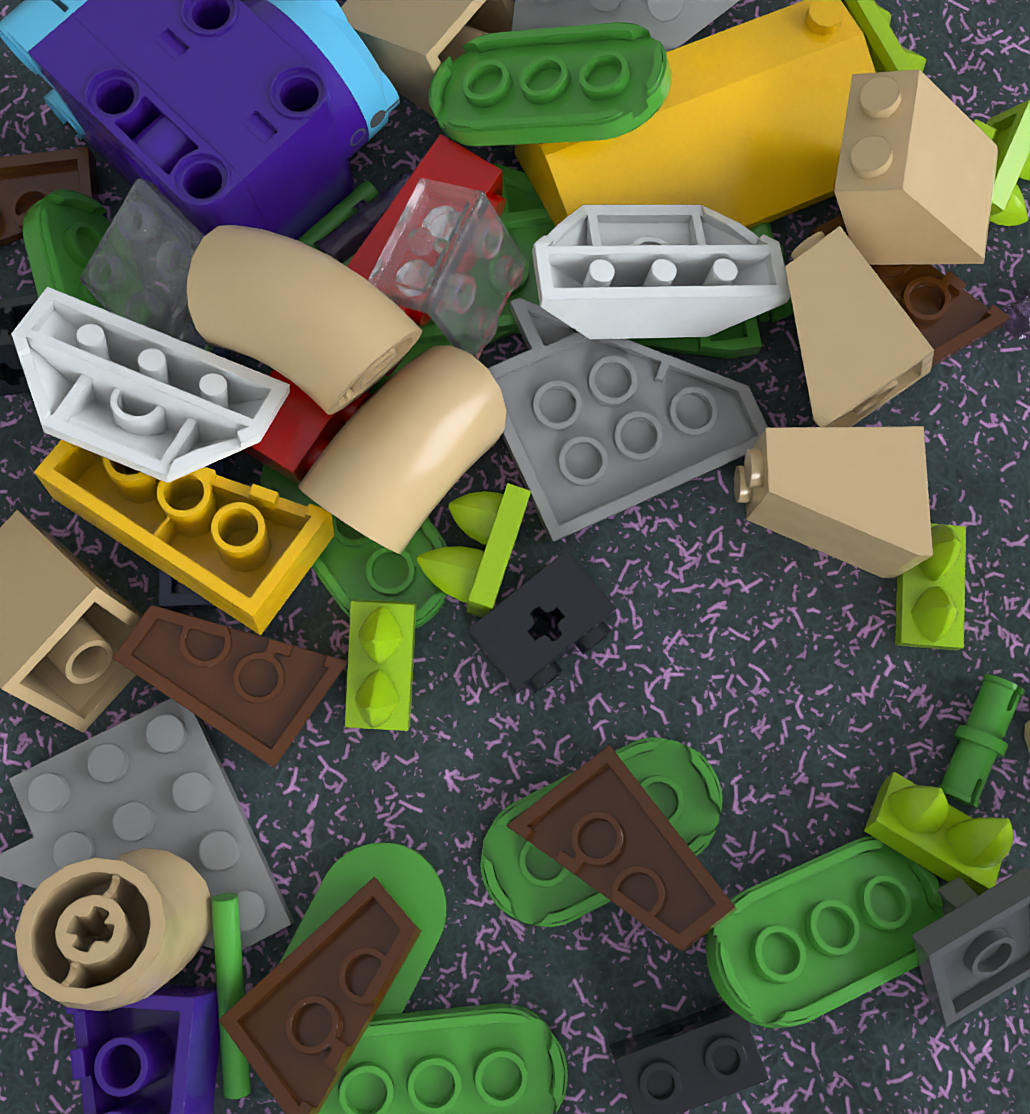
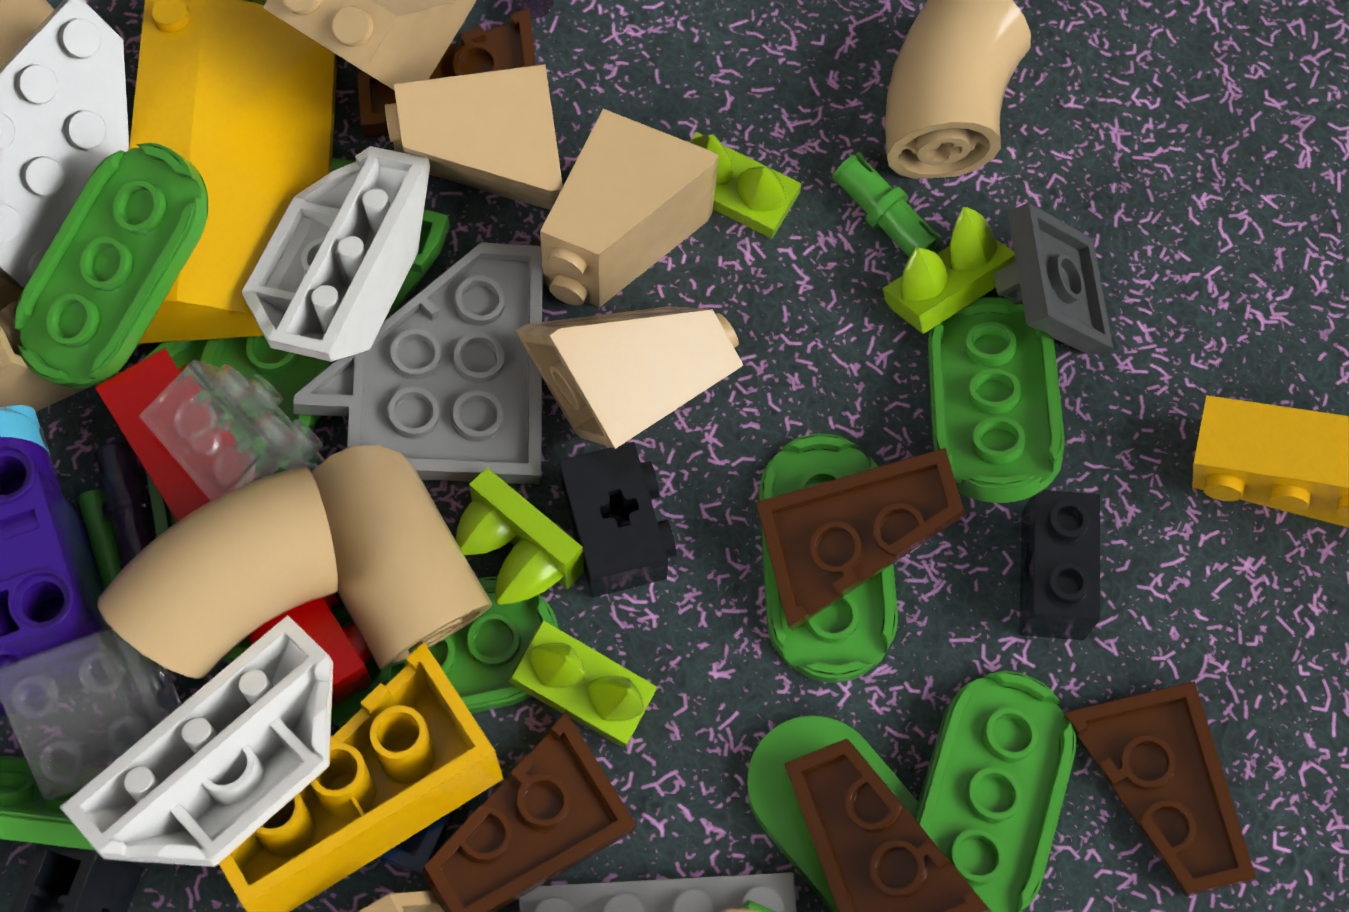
camera: 70 degrees left, 10 degrees down
(687, 573) = (631, 366): none -> tan slope

